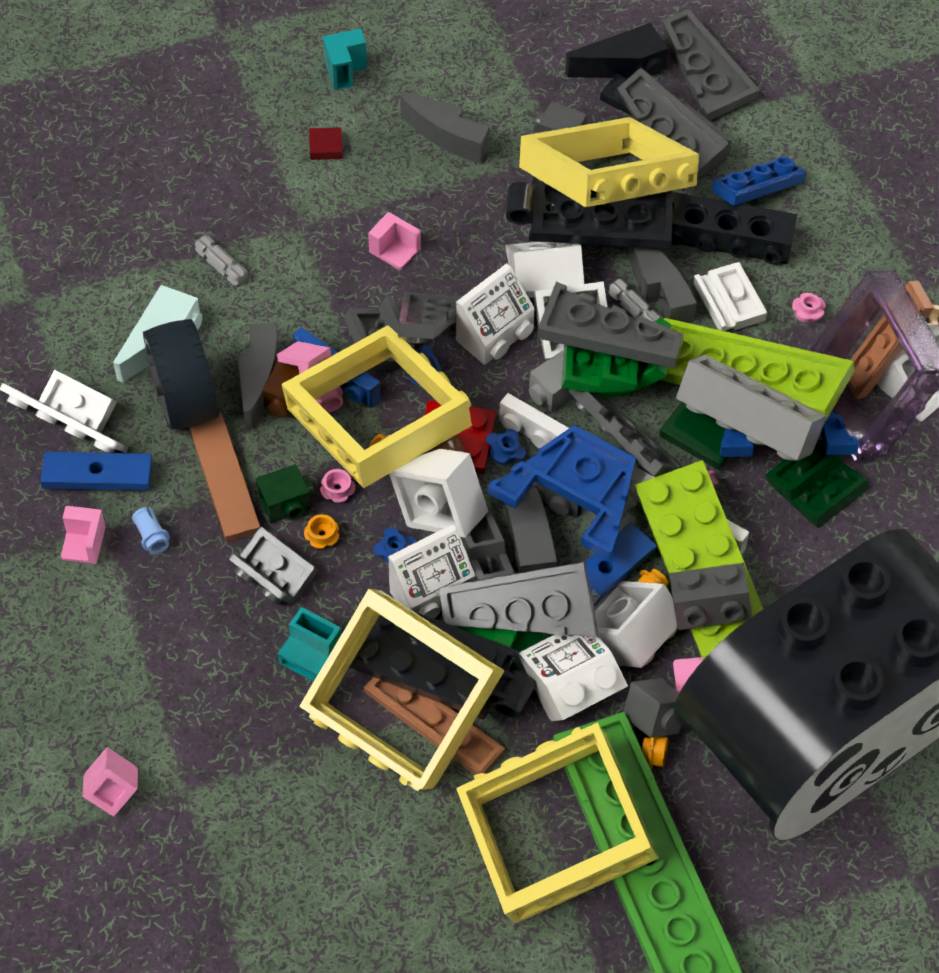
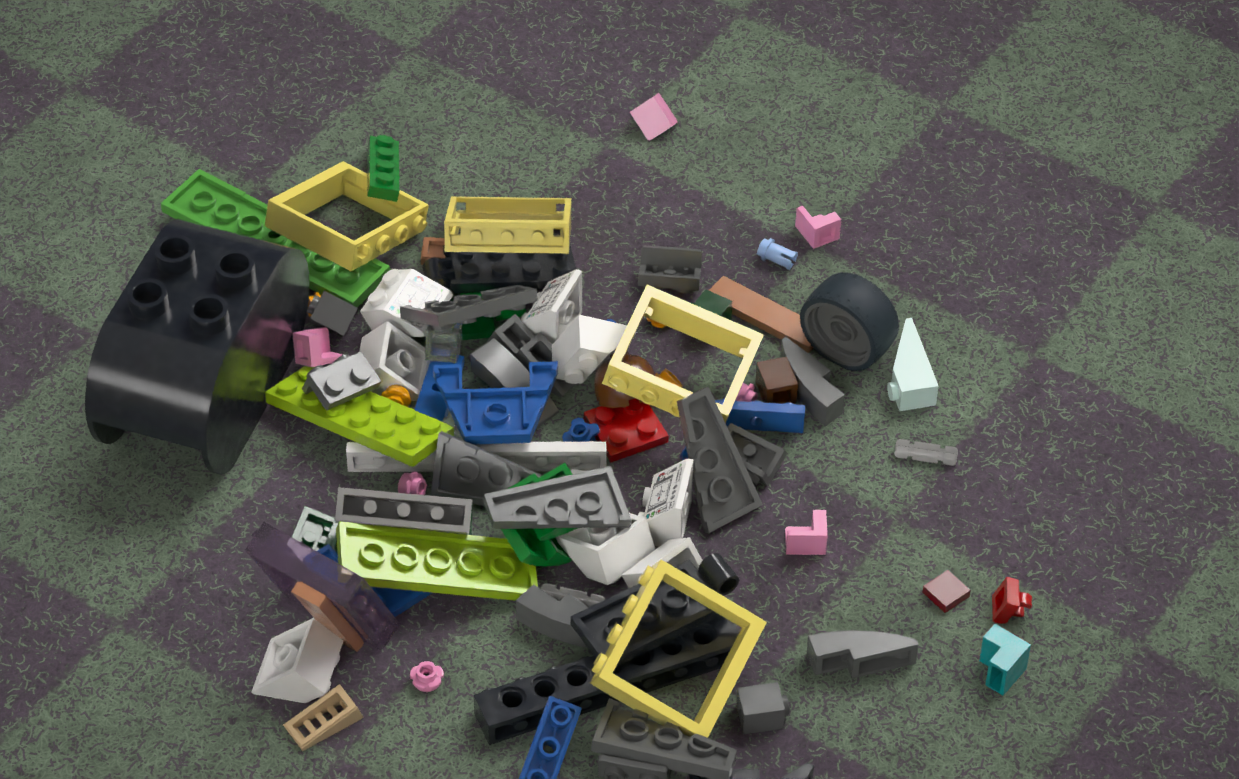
camera: 145 degrees right, 10 degrees down
(75, 405) = (921, 286): white bracket -> none
(77, 471) = (860, 260): blue tile -> none
(292, 100) = (1009, 602): none -> red tile
(304, 355) = (771, 383): bright pink panel -> none
(308, 644) = (599, 244): teal piece -> none
(334, 478) = (681, 341): bright pink plate -> none
(467, 874) = (383, 168): none -> green plate
(730, 297) = (498, 643): white plate -> none

